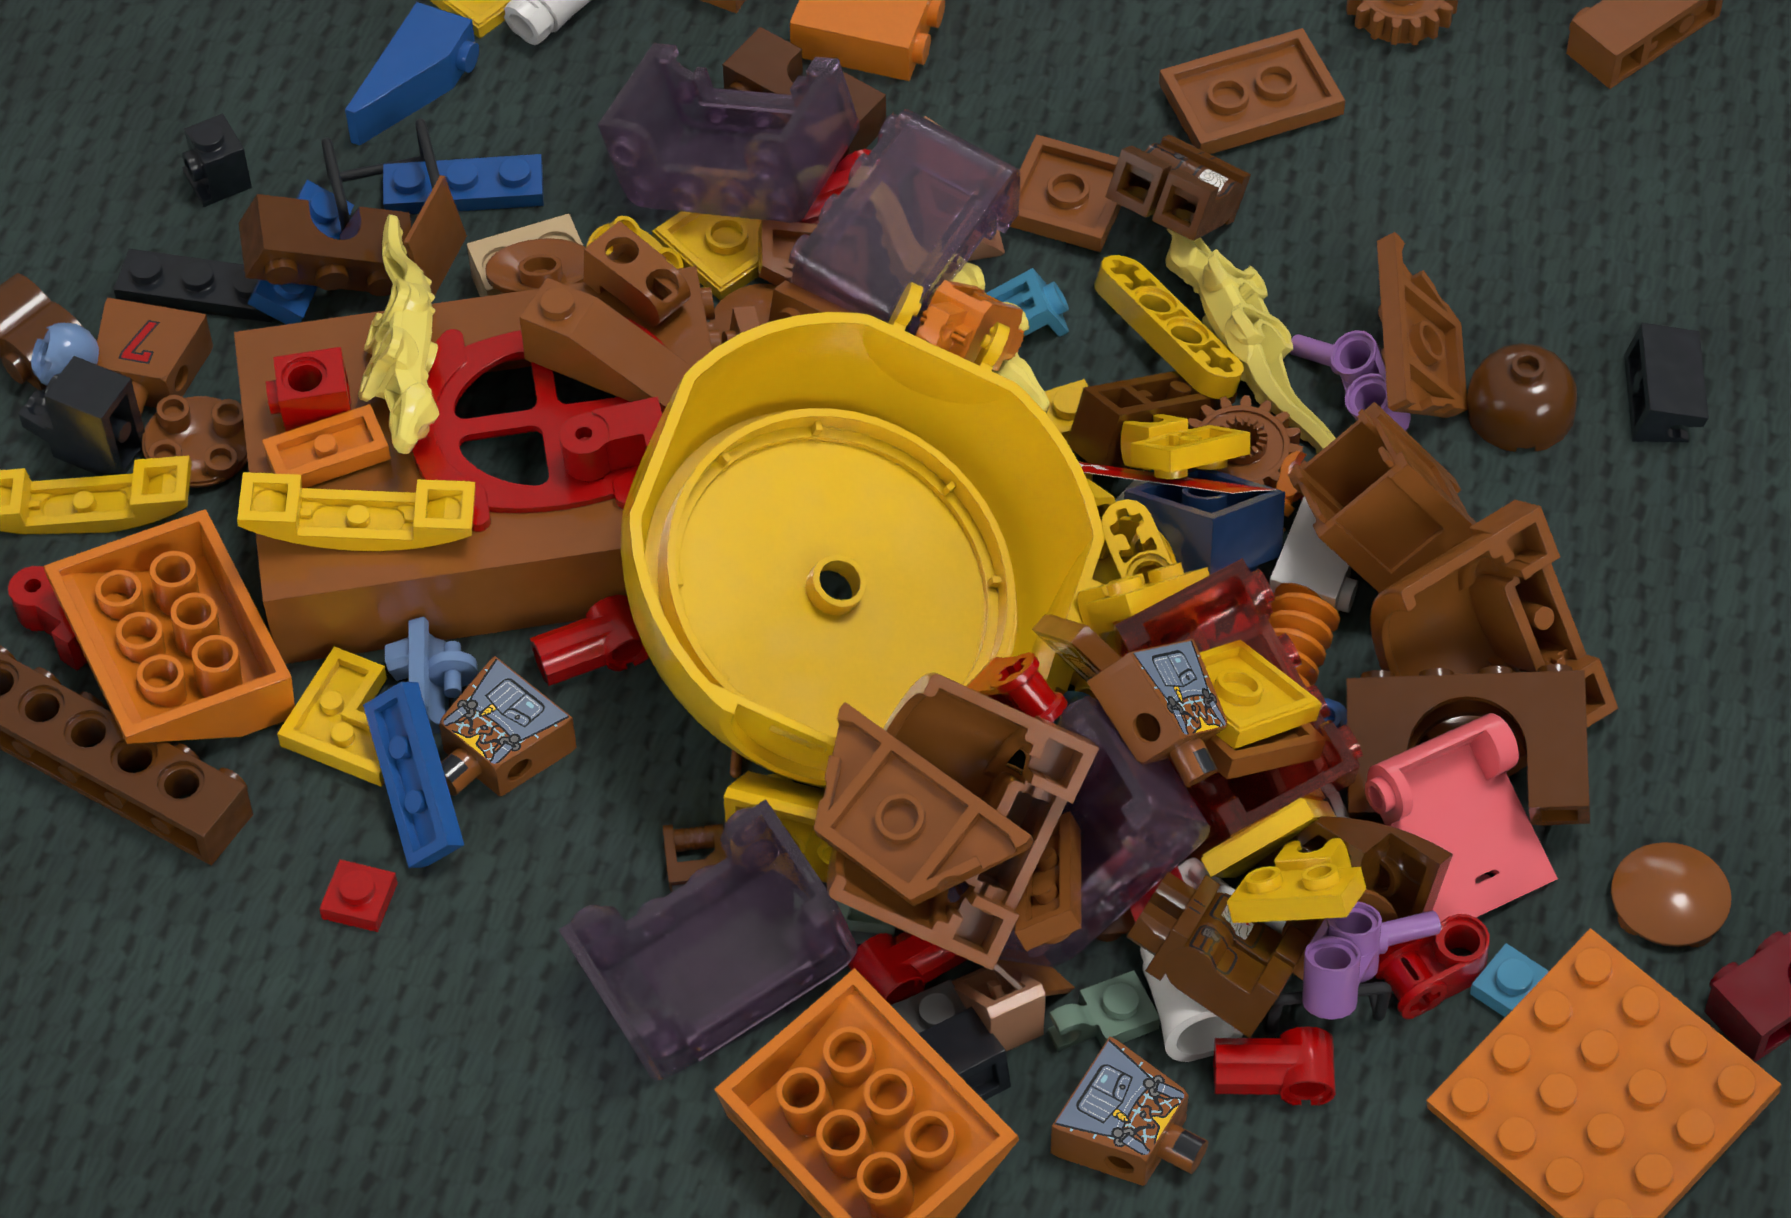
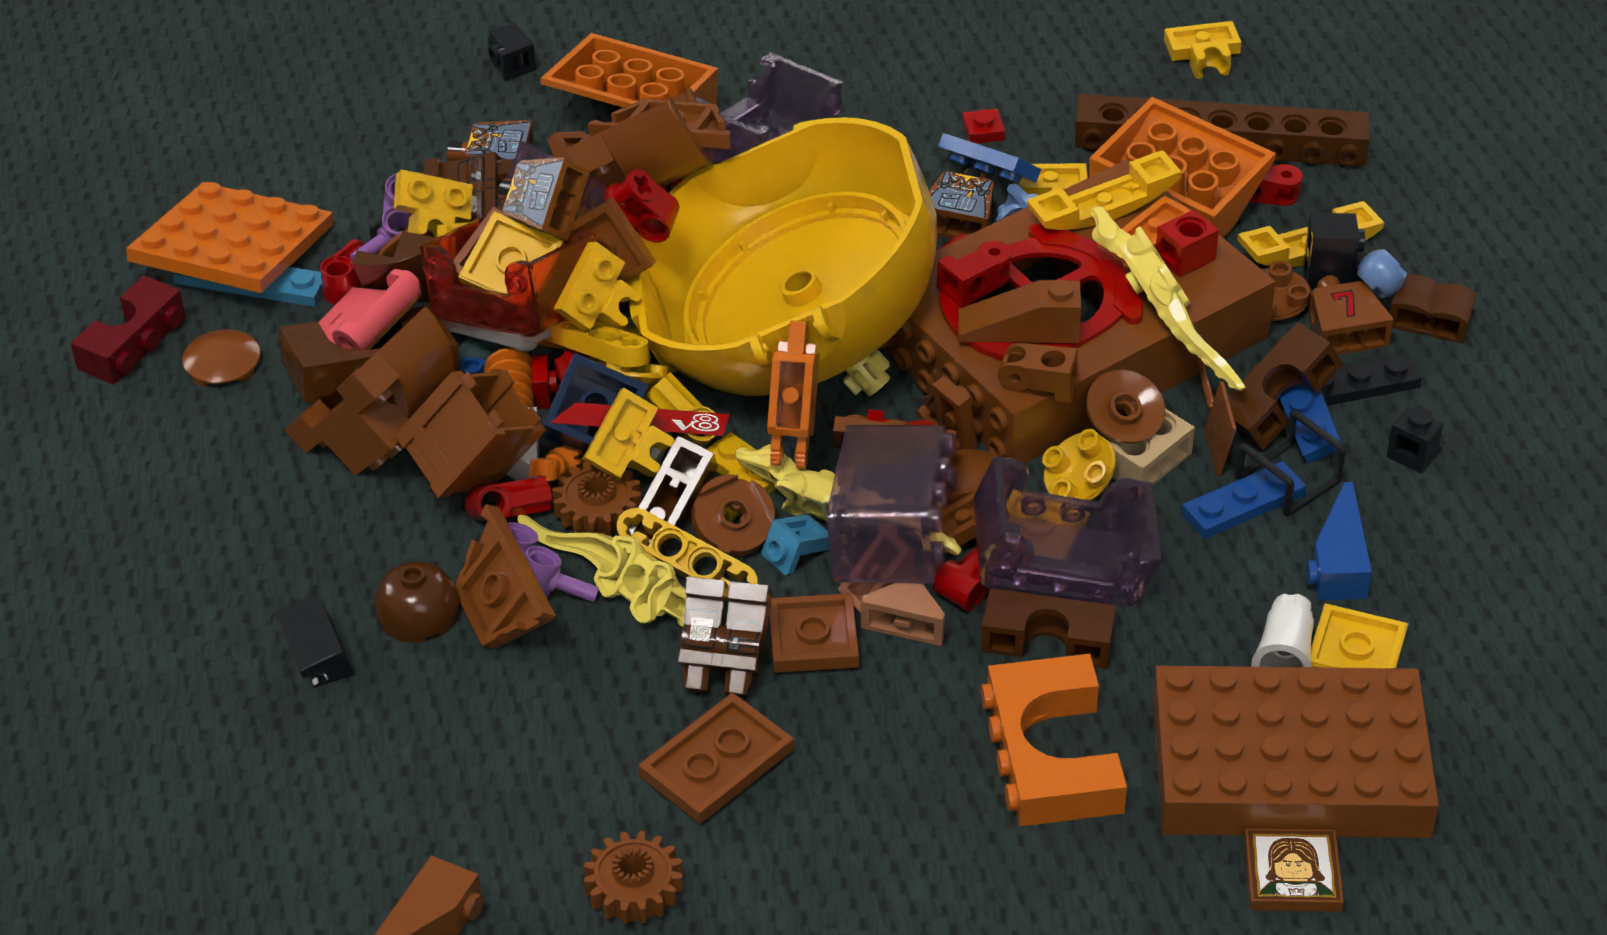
camera: 155 degrees right, 10 degrees down
(1087, 354) = (740, 495): none -> dark orange plate

